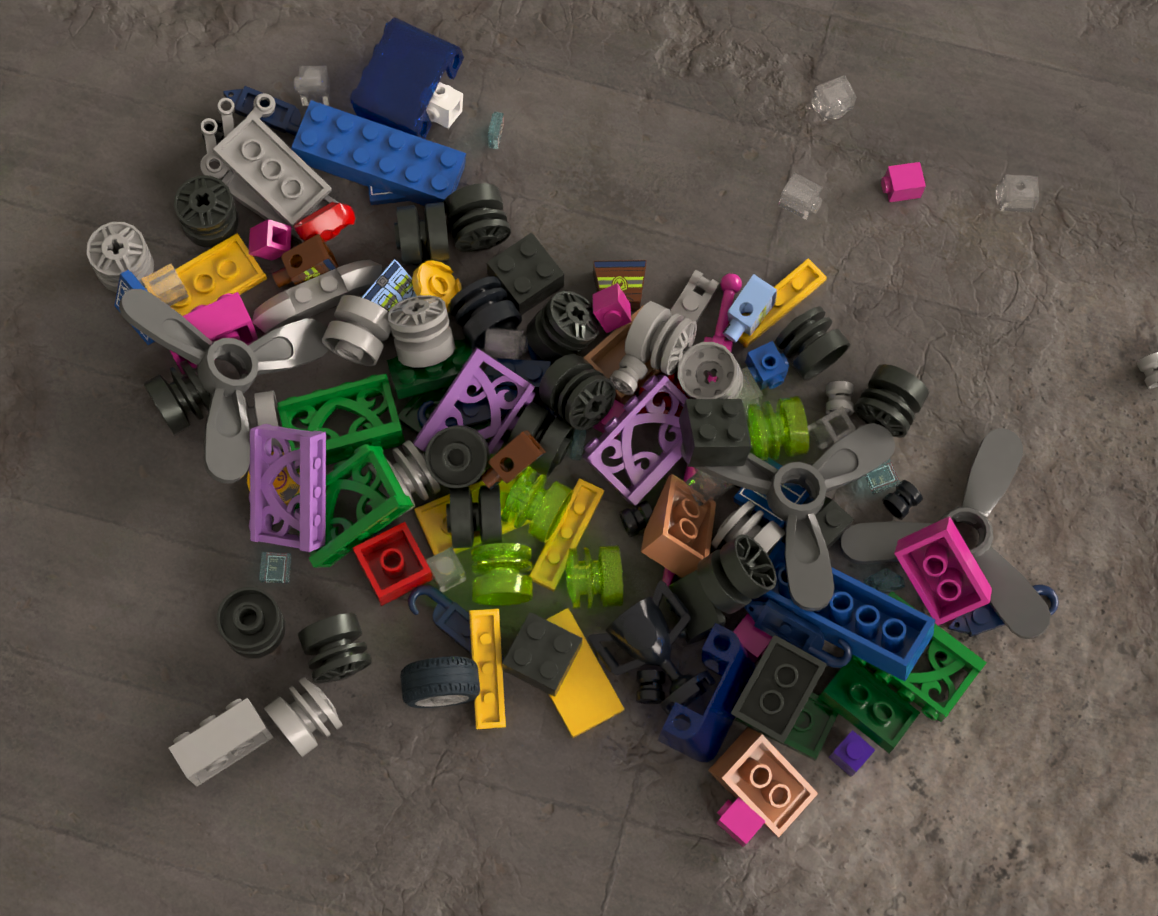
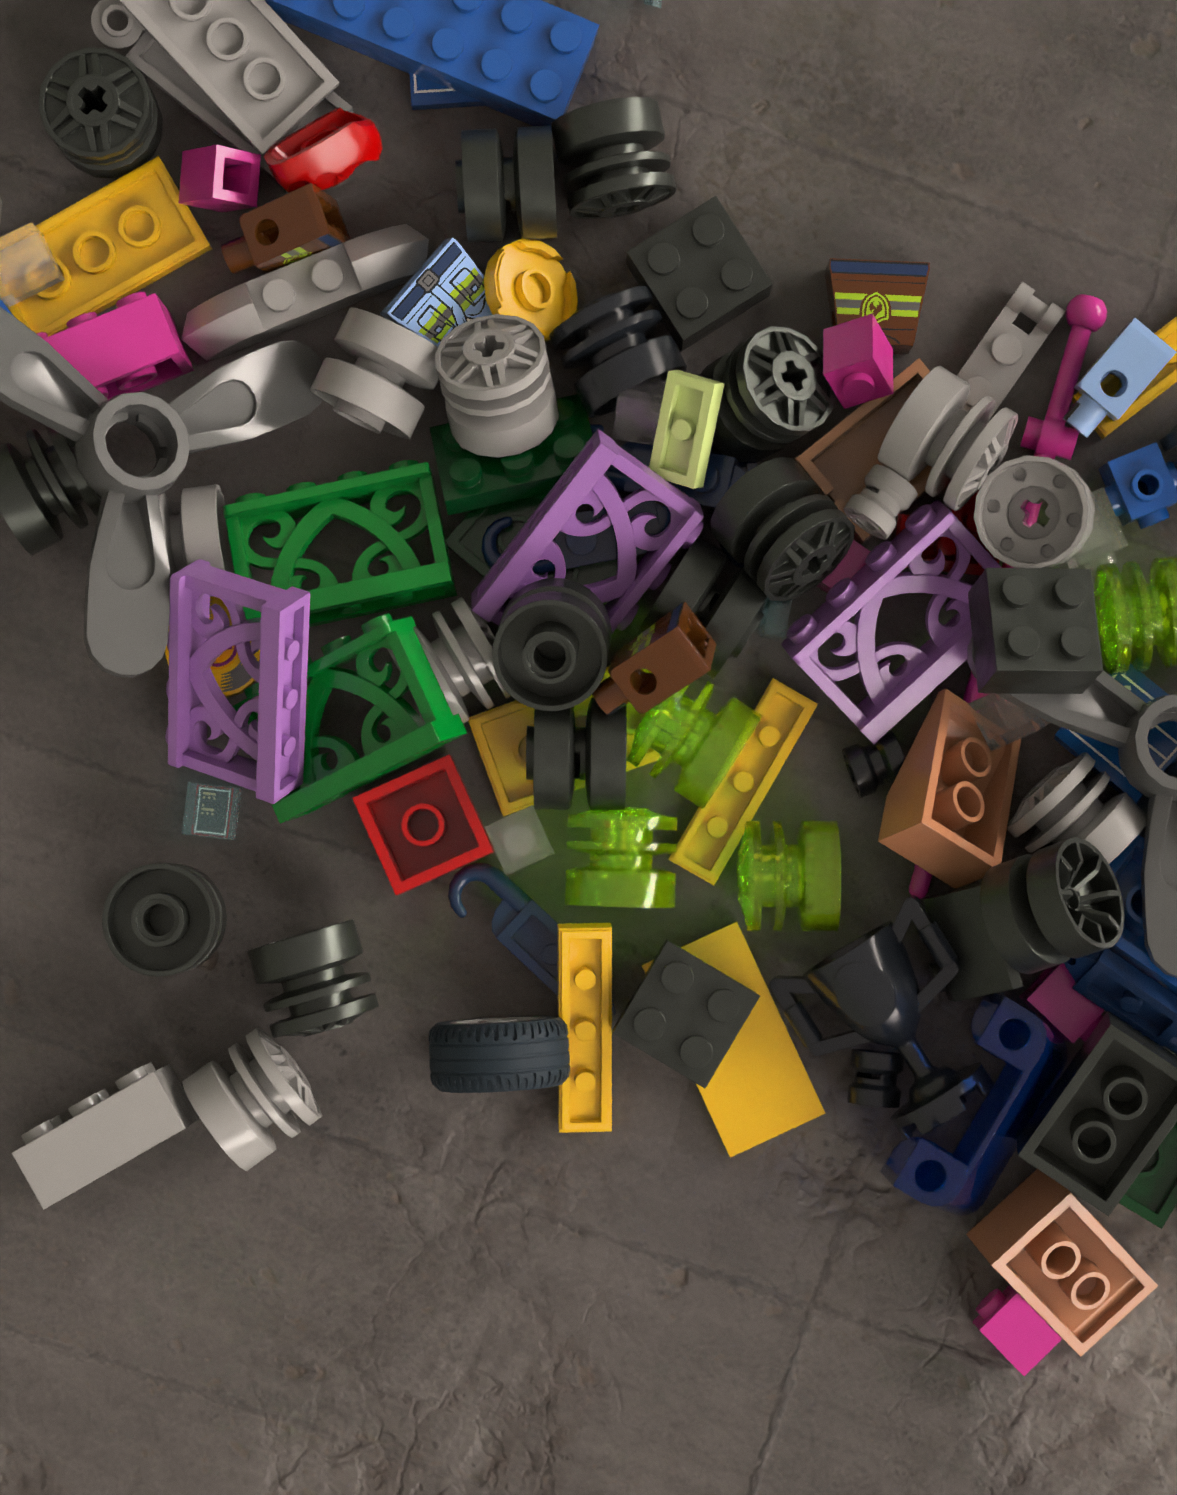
camera: 10 degrees right, 15 degrees up
(523, 344) = (686, 428): none -> yellowish green plate

